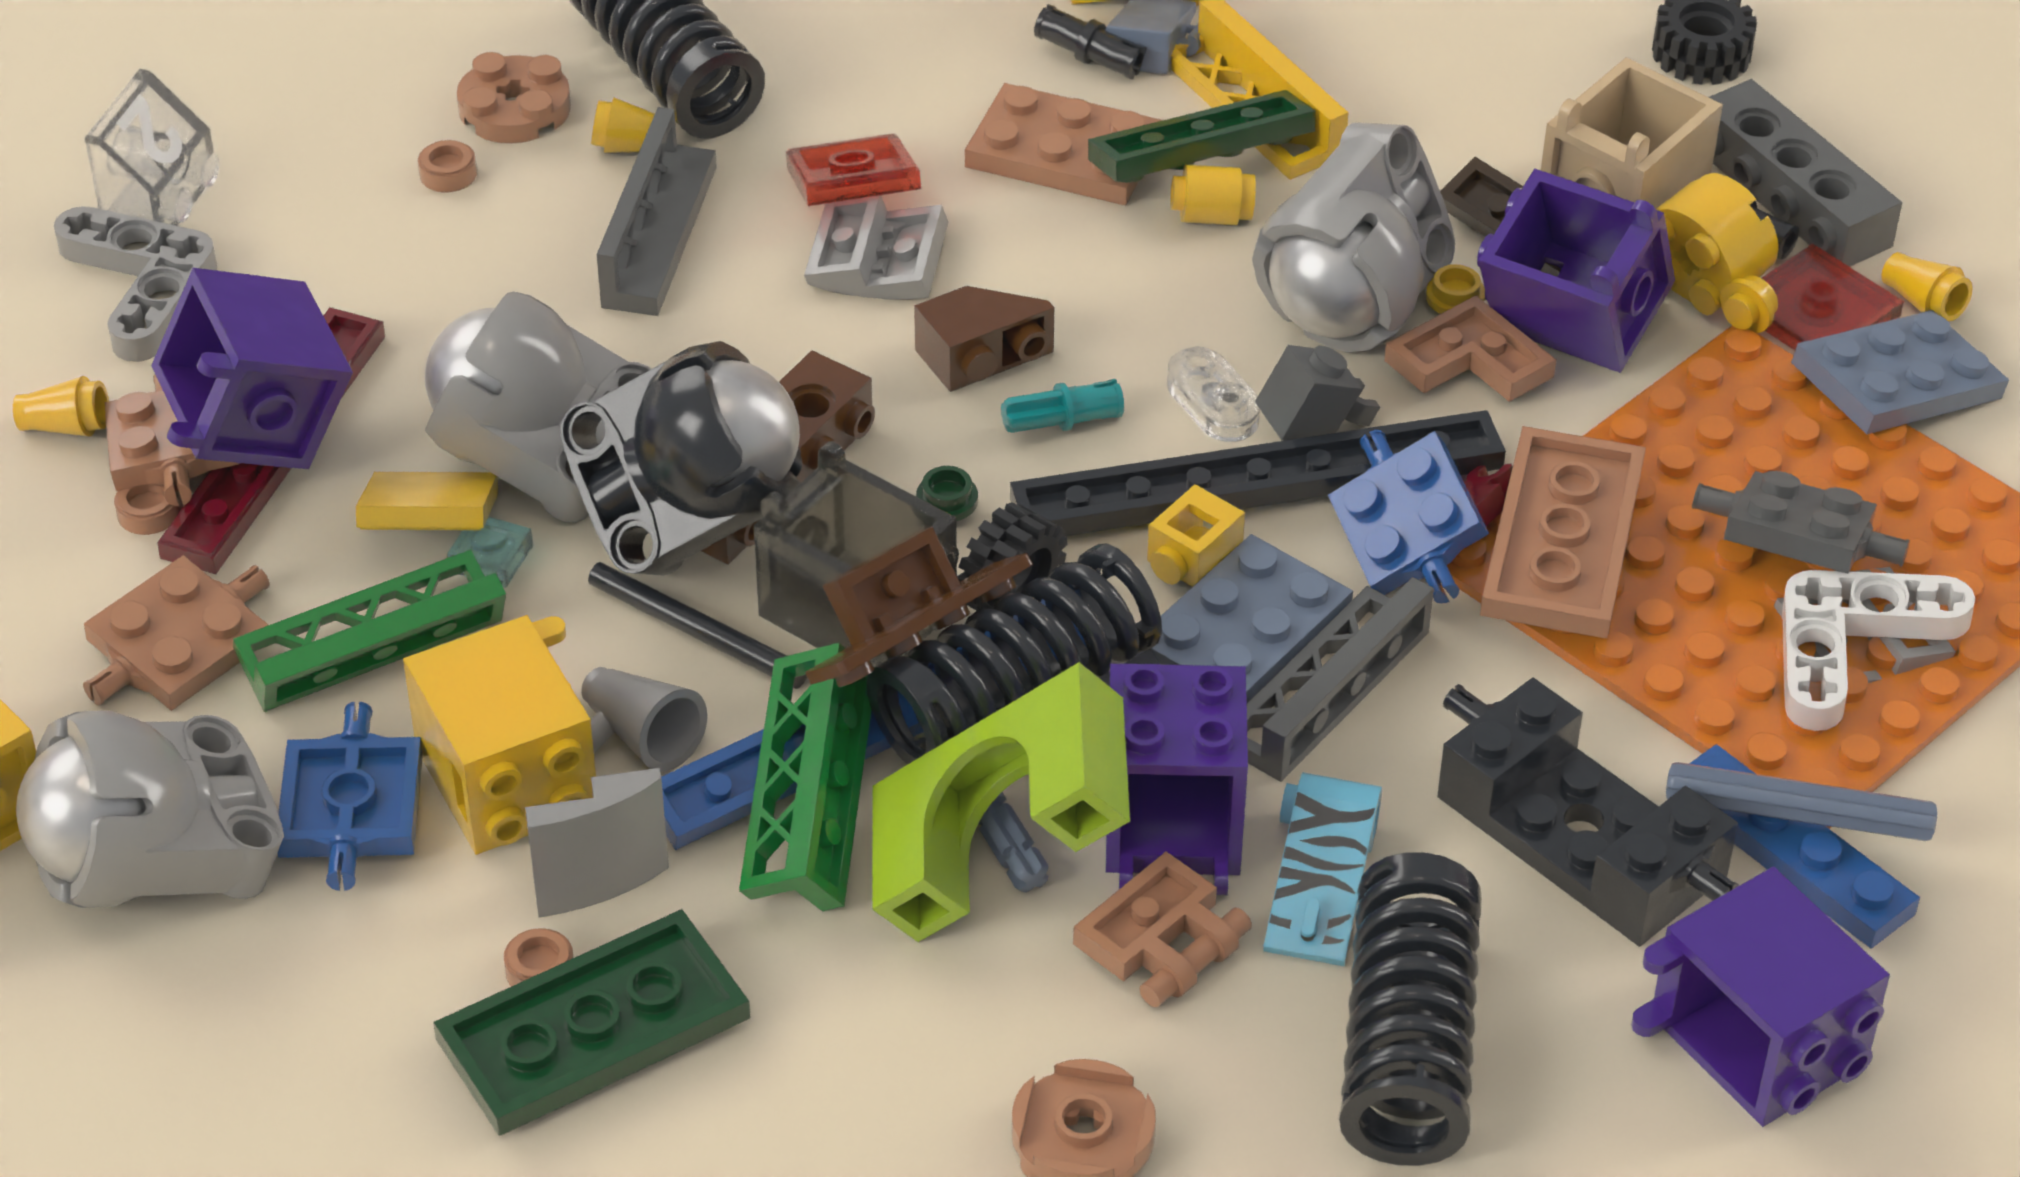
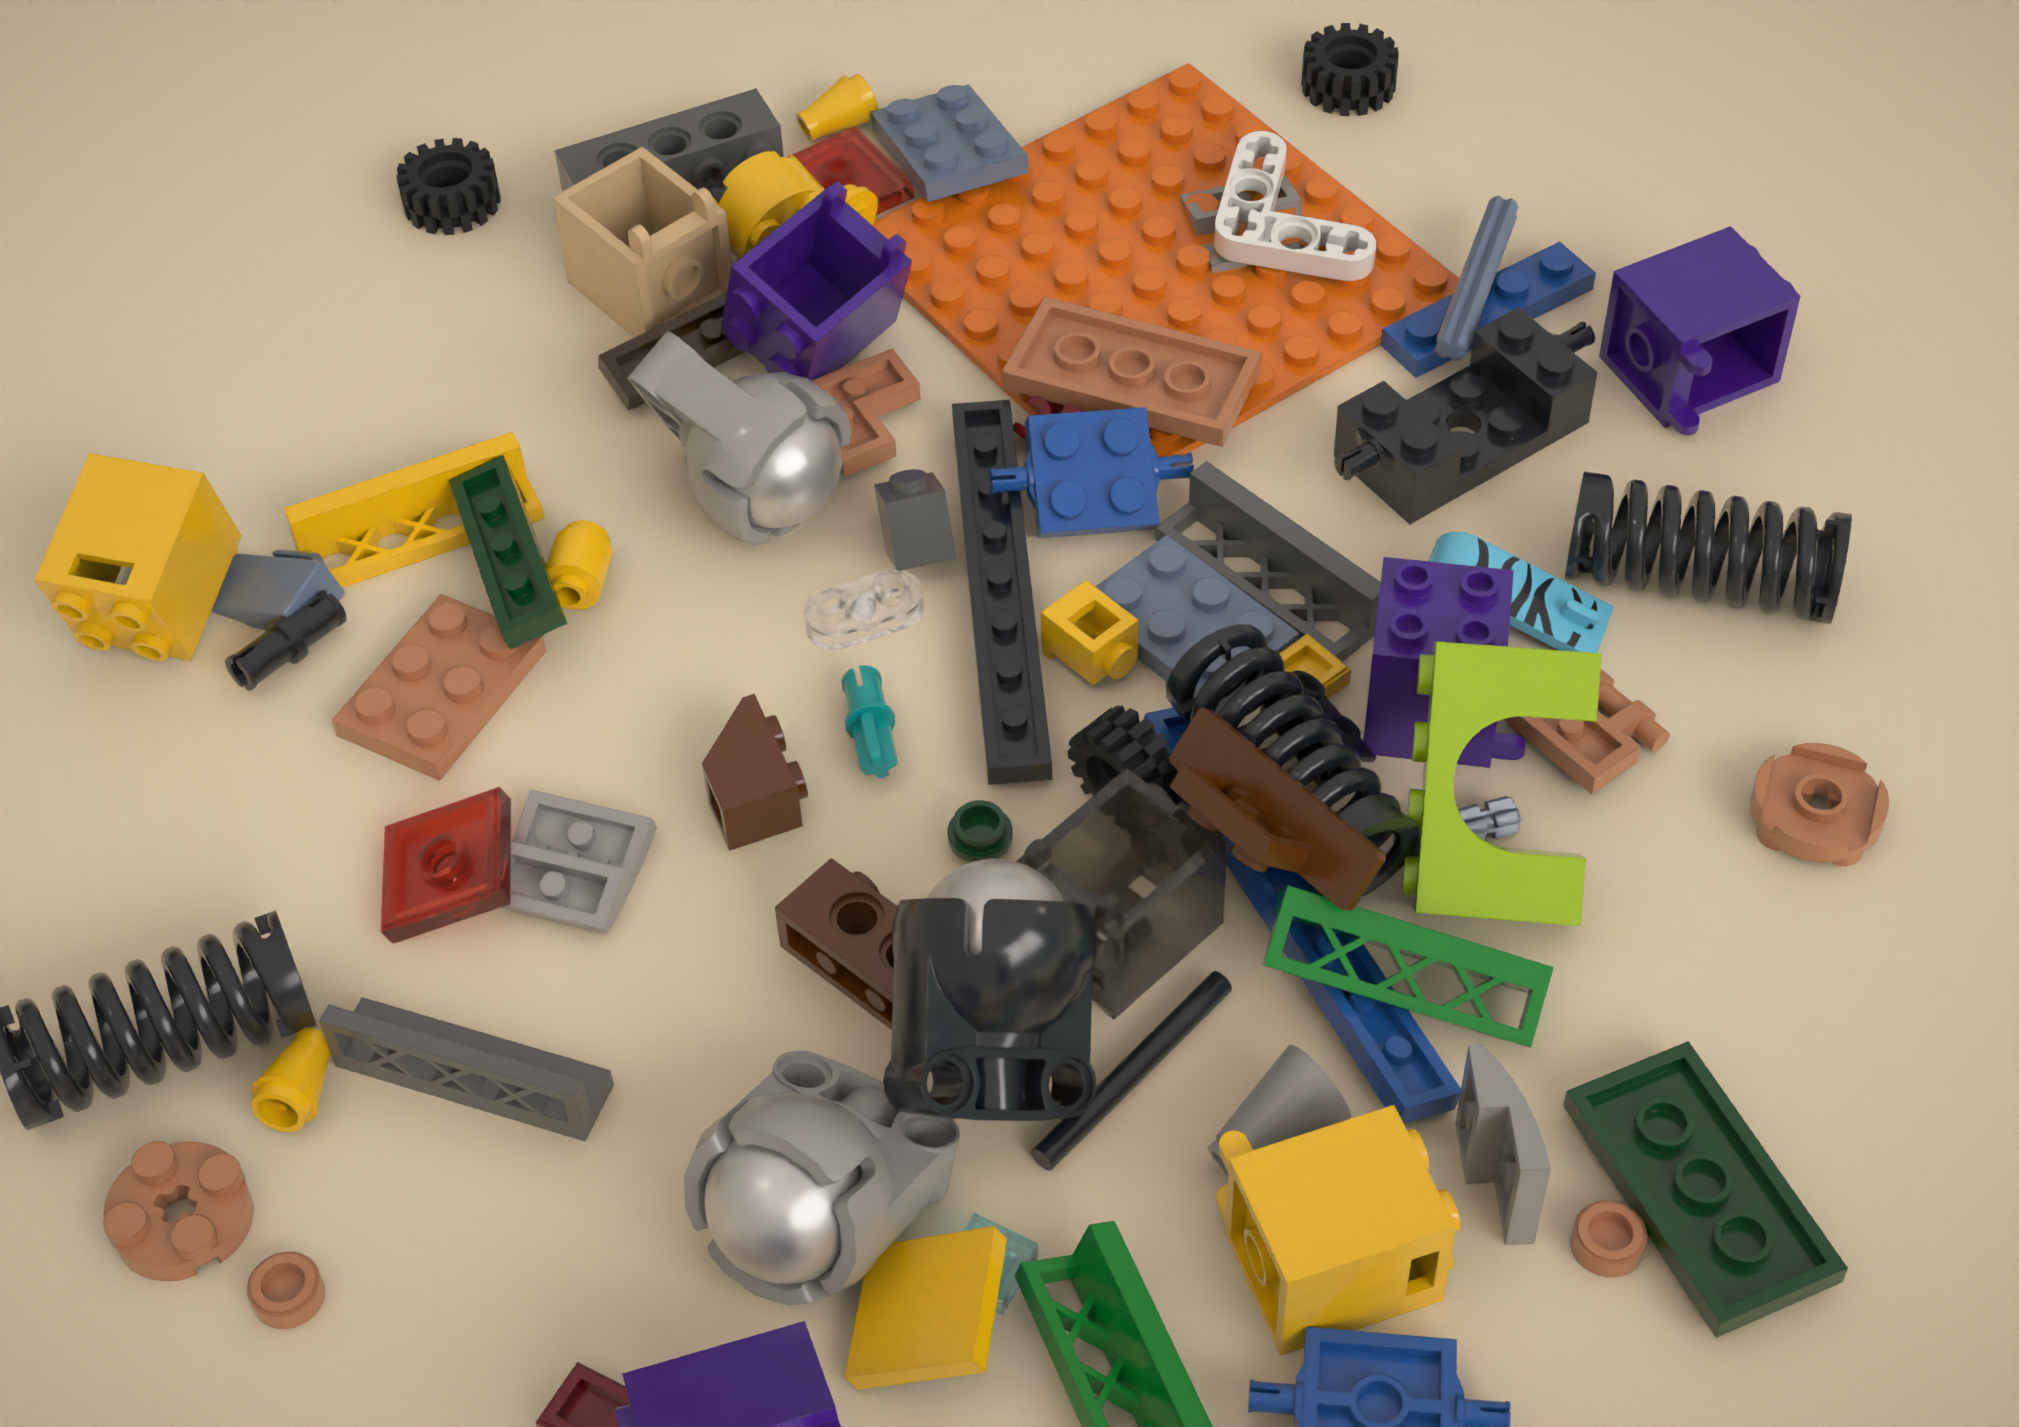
camera: 80 degrees left, 5 degrees up
(1801, 521) = (1150, 221): dark grey plate -> none

